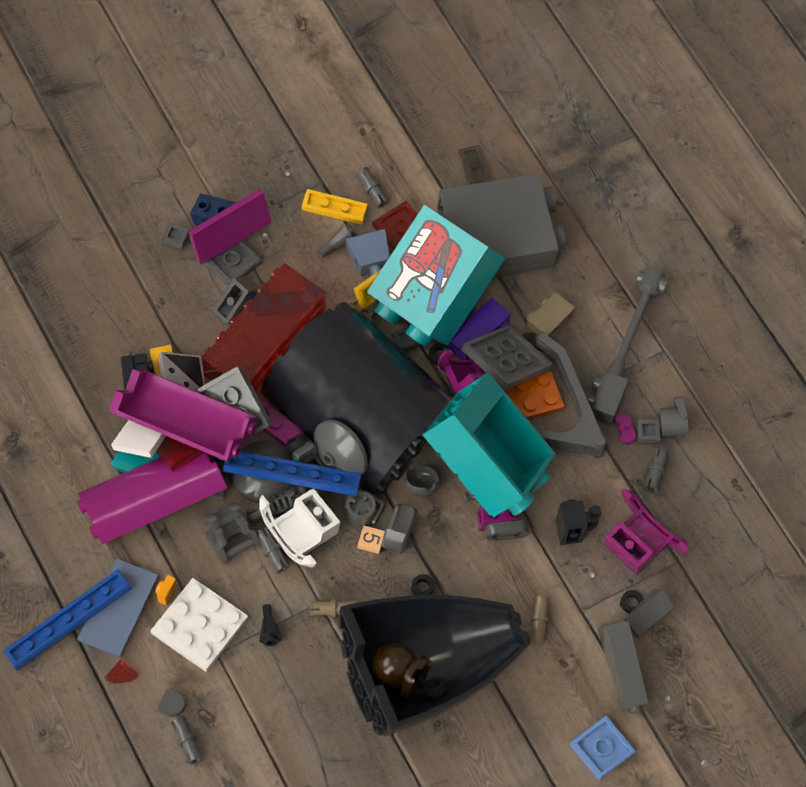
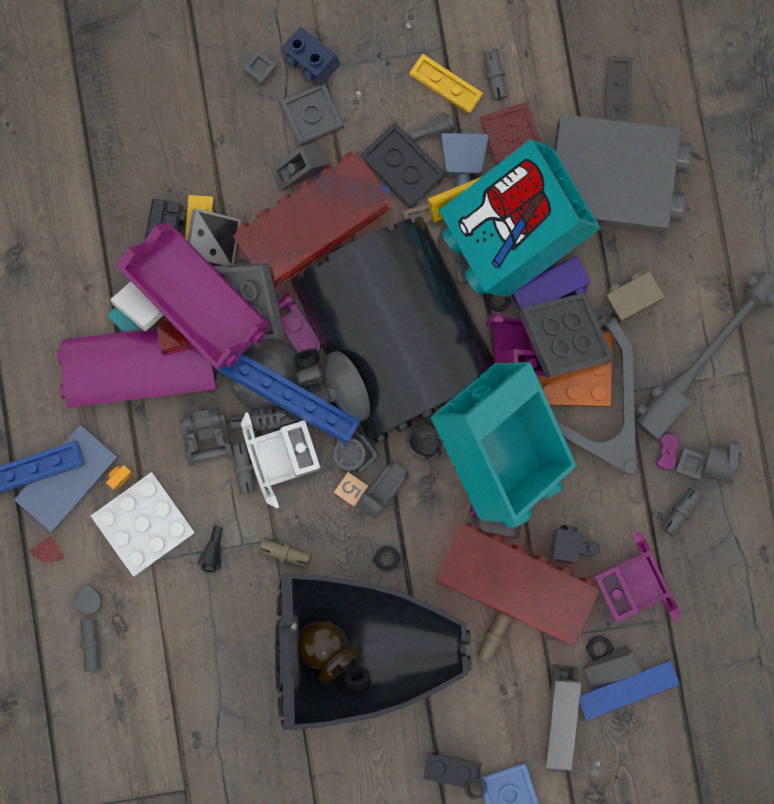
camera: 25 degrees right, 20 degrees up
(230, 226) = (317, 81): magenta tile -> none
(326, 273) = (402, 165): none -> black tile
(543, 564) = (517, 583): none -> clear red brick
(549, 738) = (454, 772): none -> black hinge
(670, 627) = (628, 690): none -> blue tile

